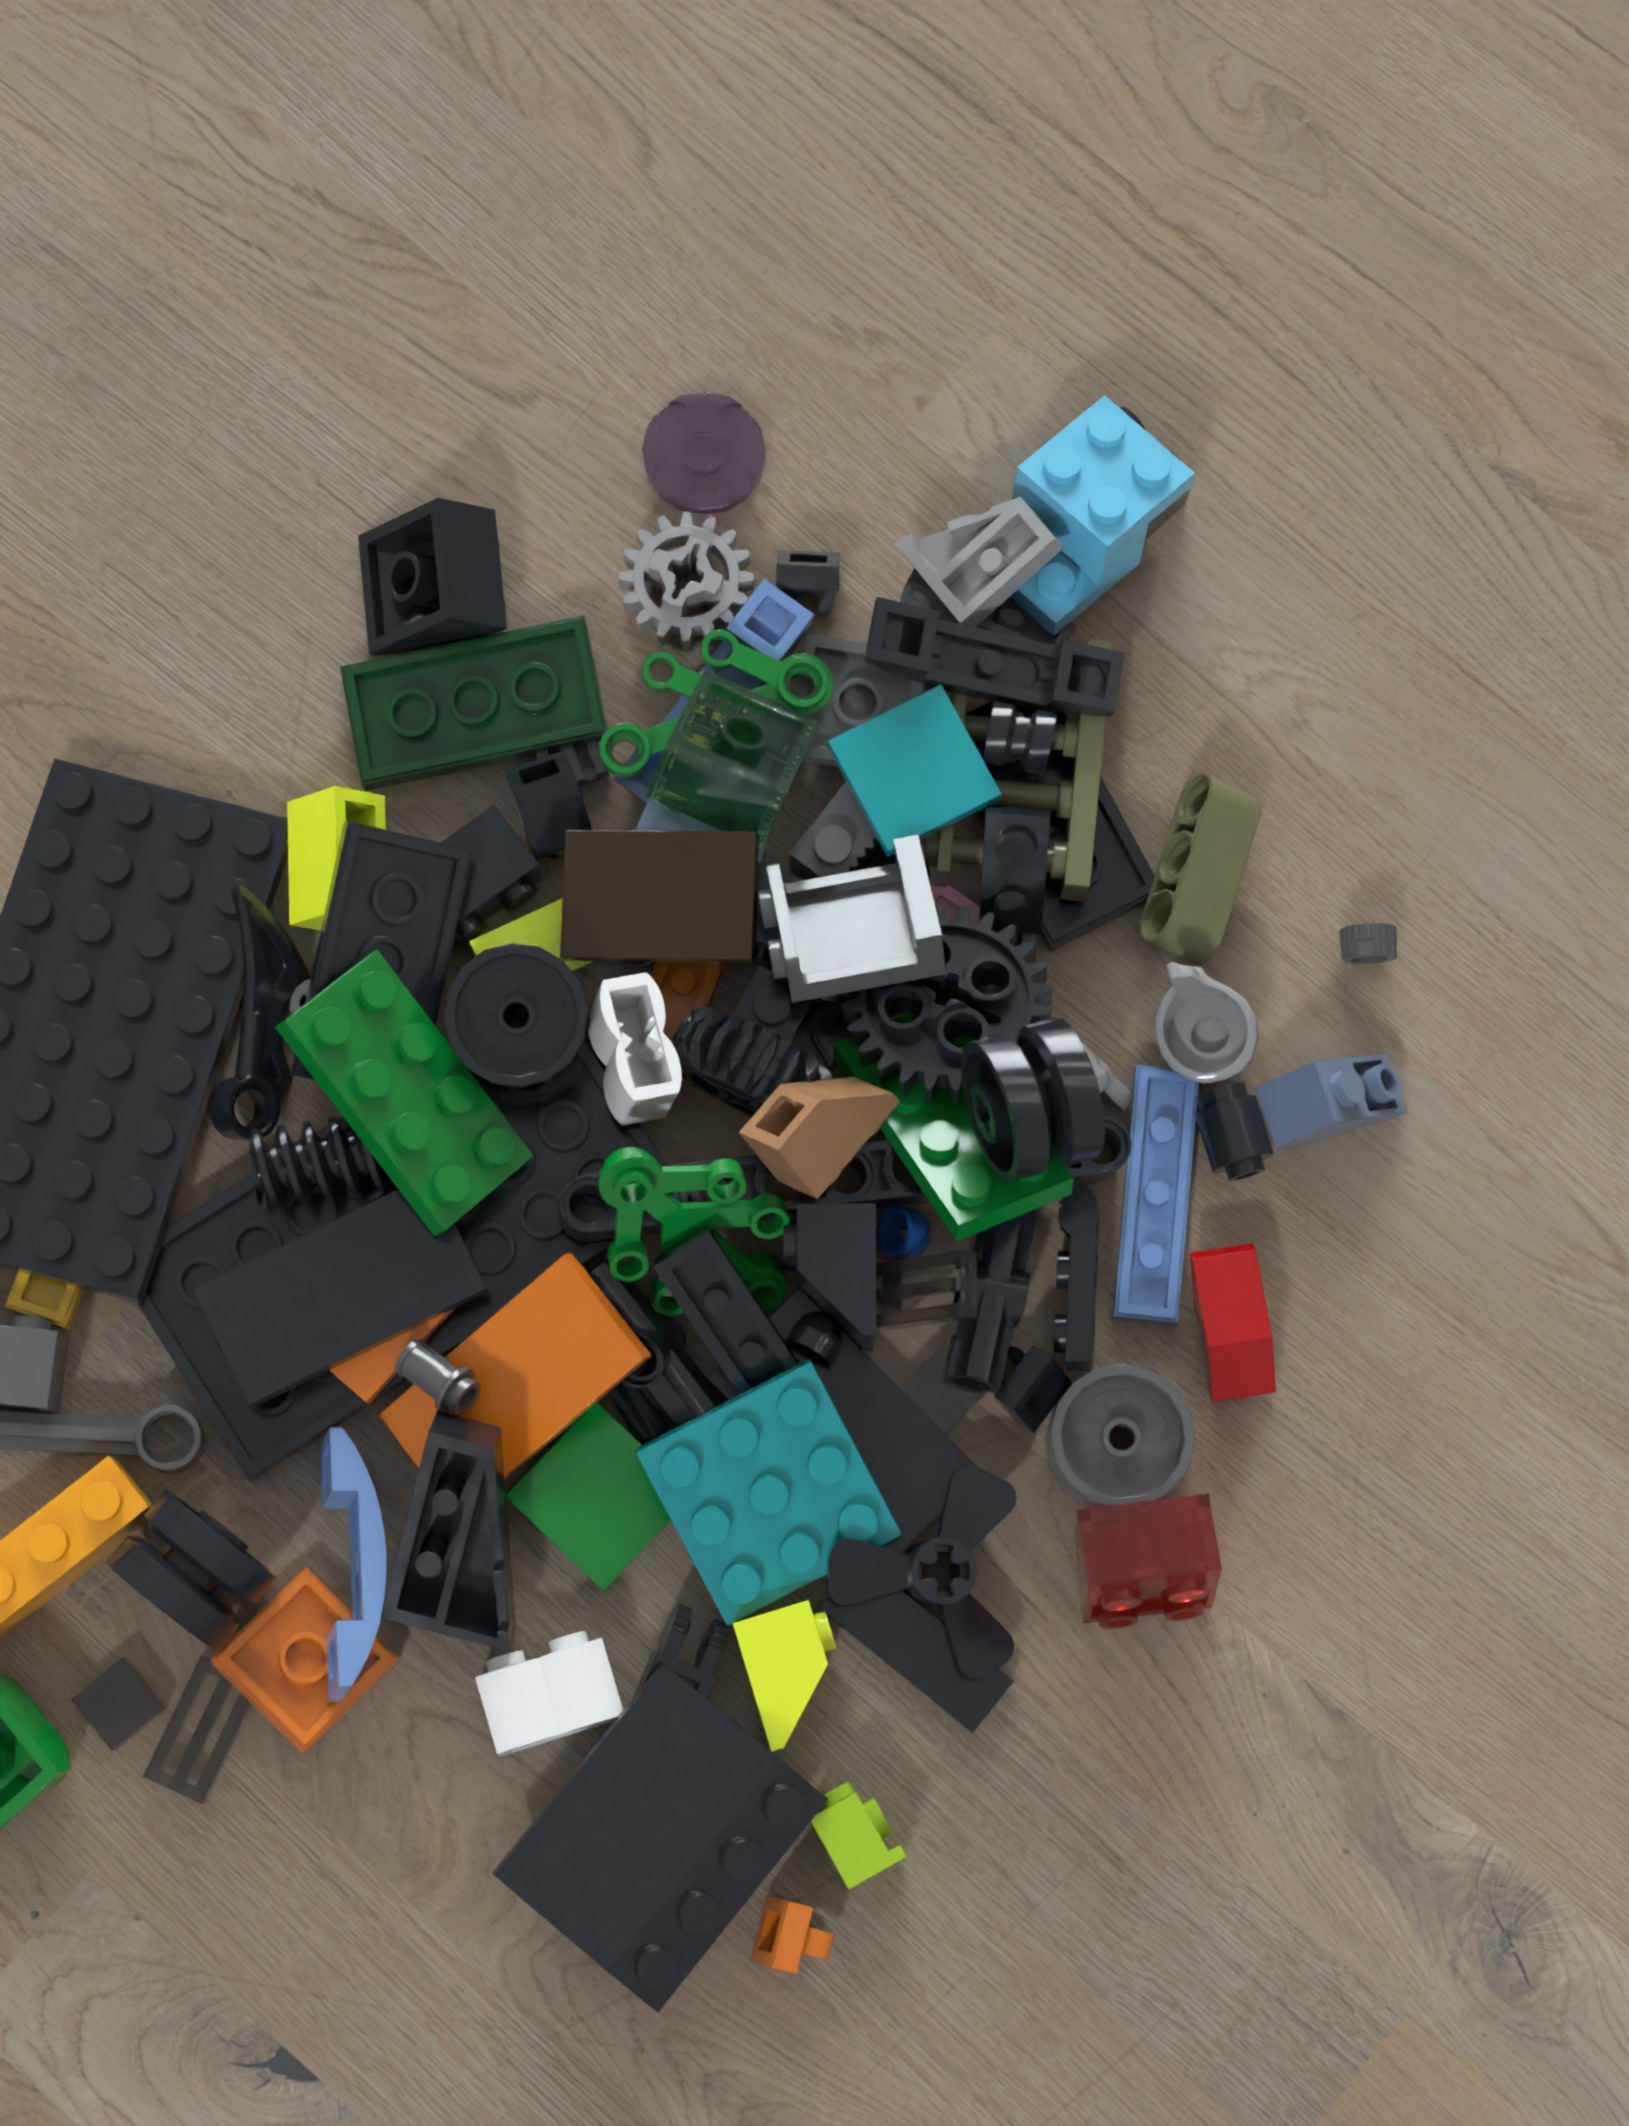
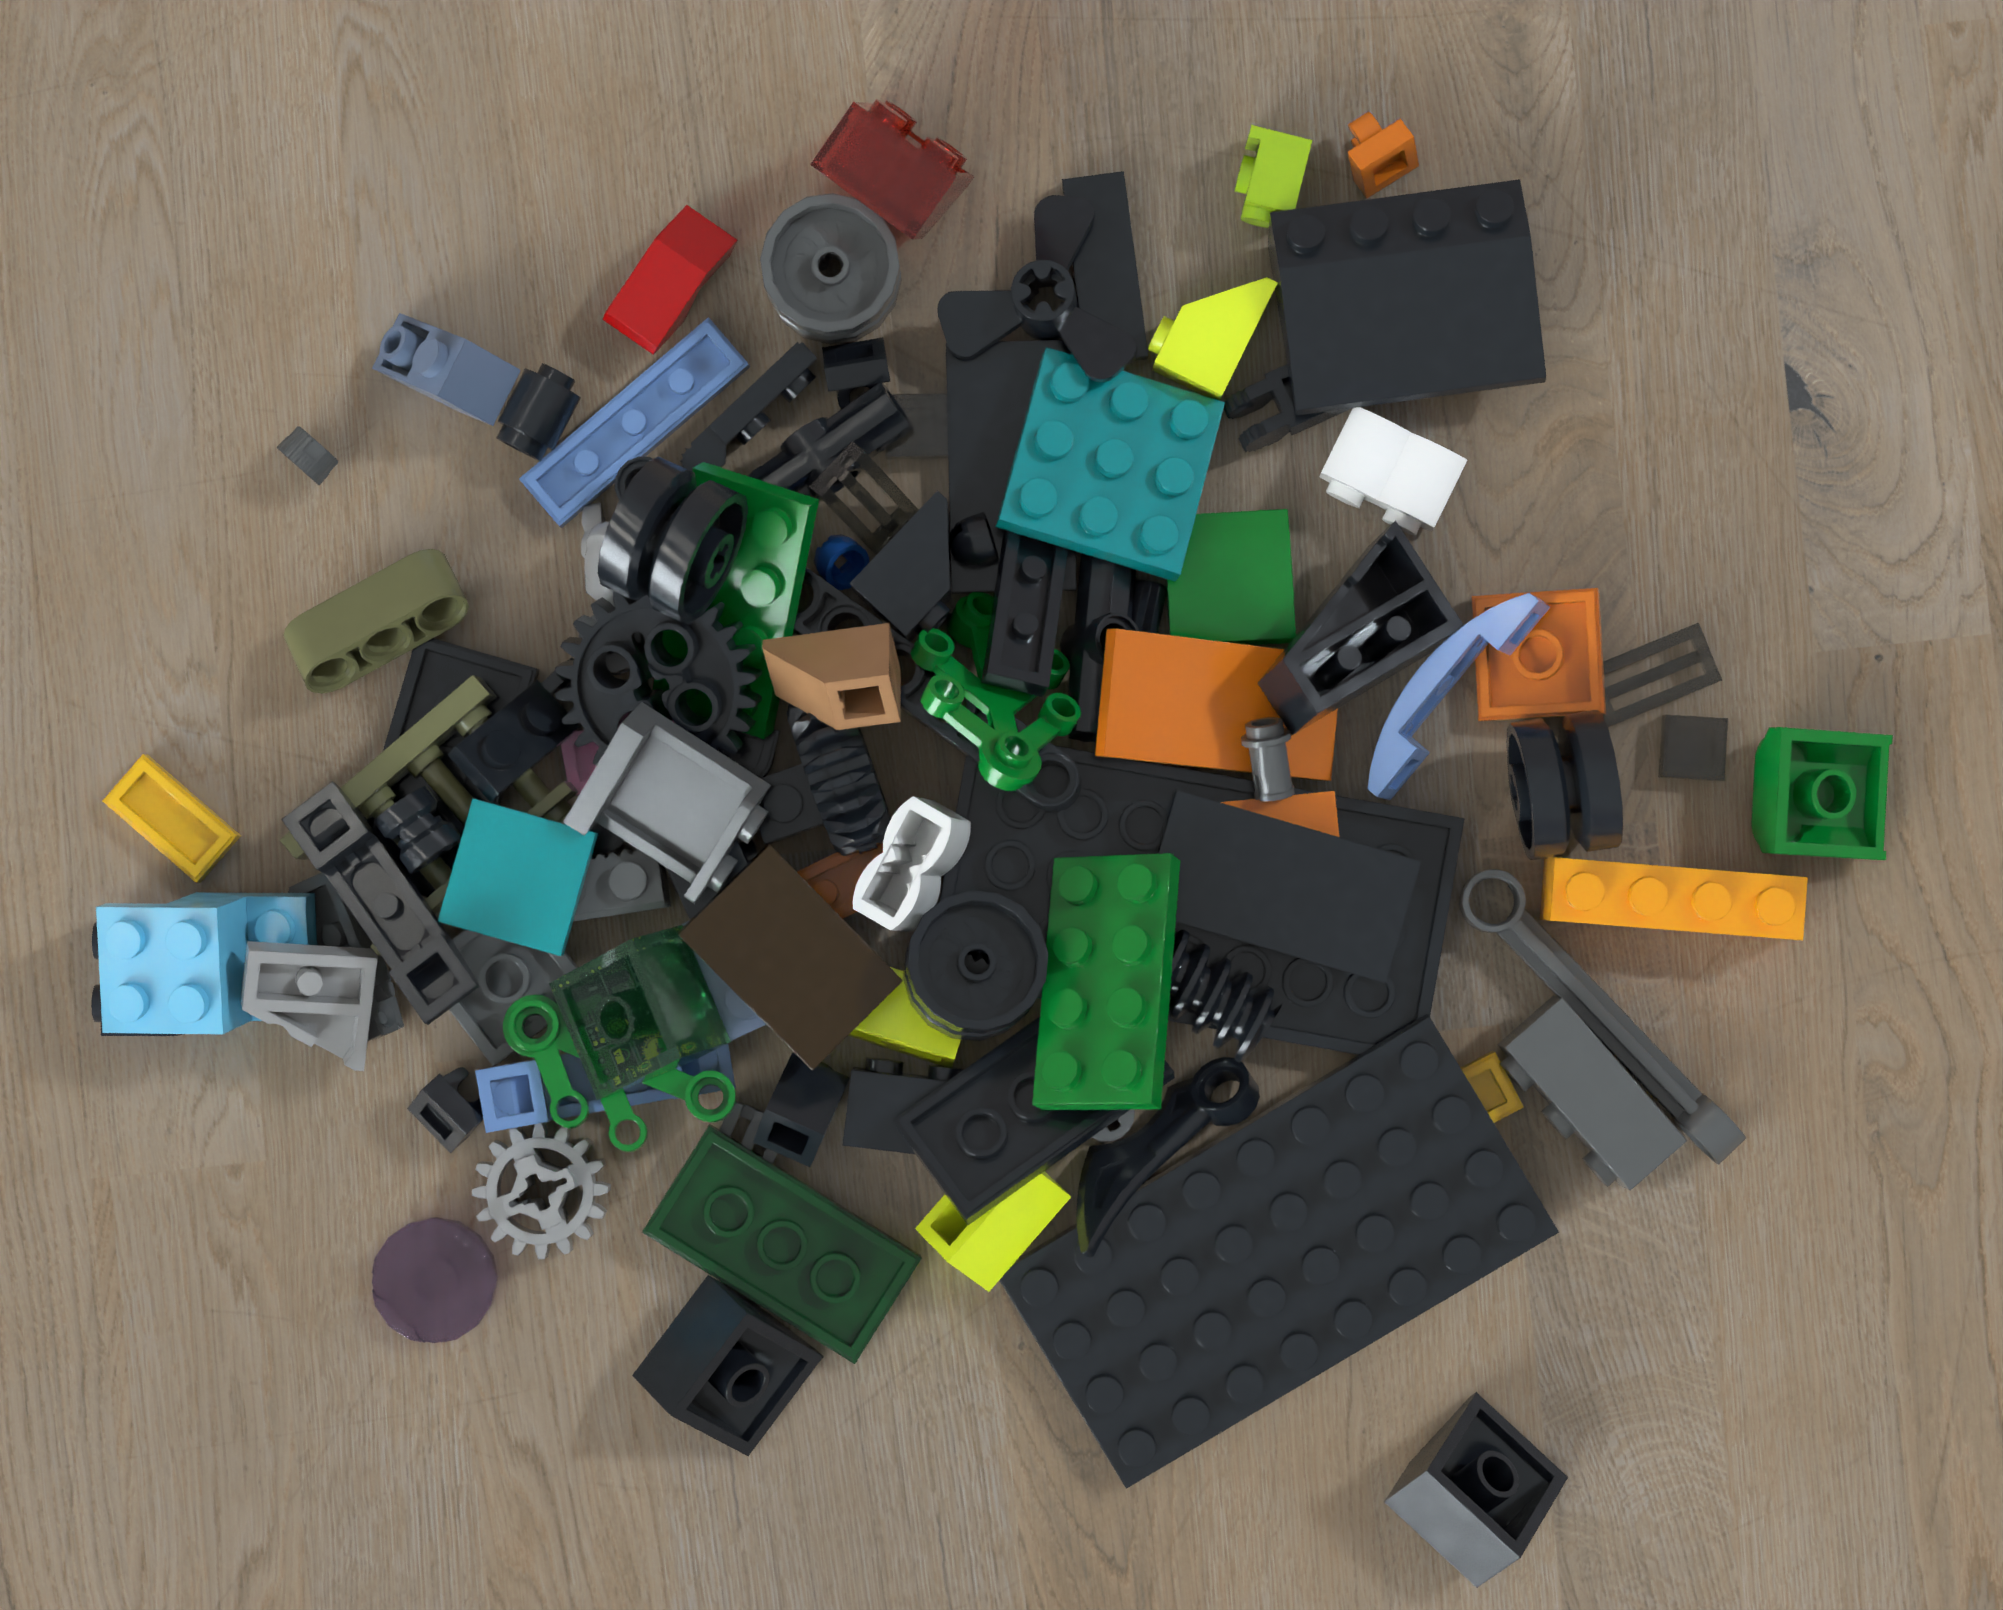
camera: 135 degrees left, 10 degrees up
(1204, 1026) = (487, 500): light grey hat -> none
(1208, 599) = (171, 818): none -> yellow tile

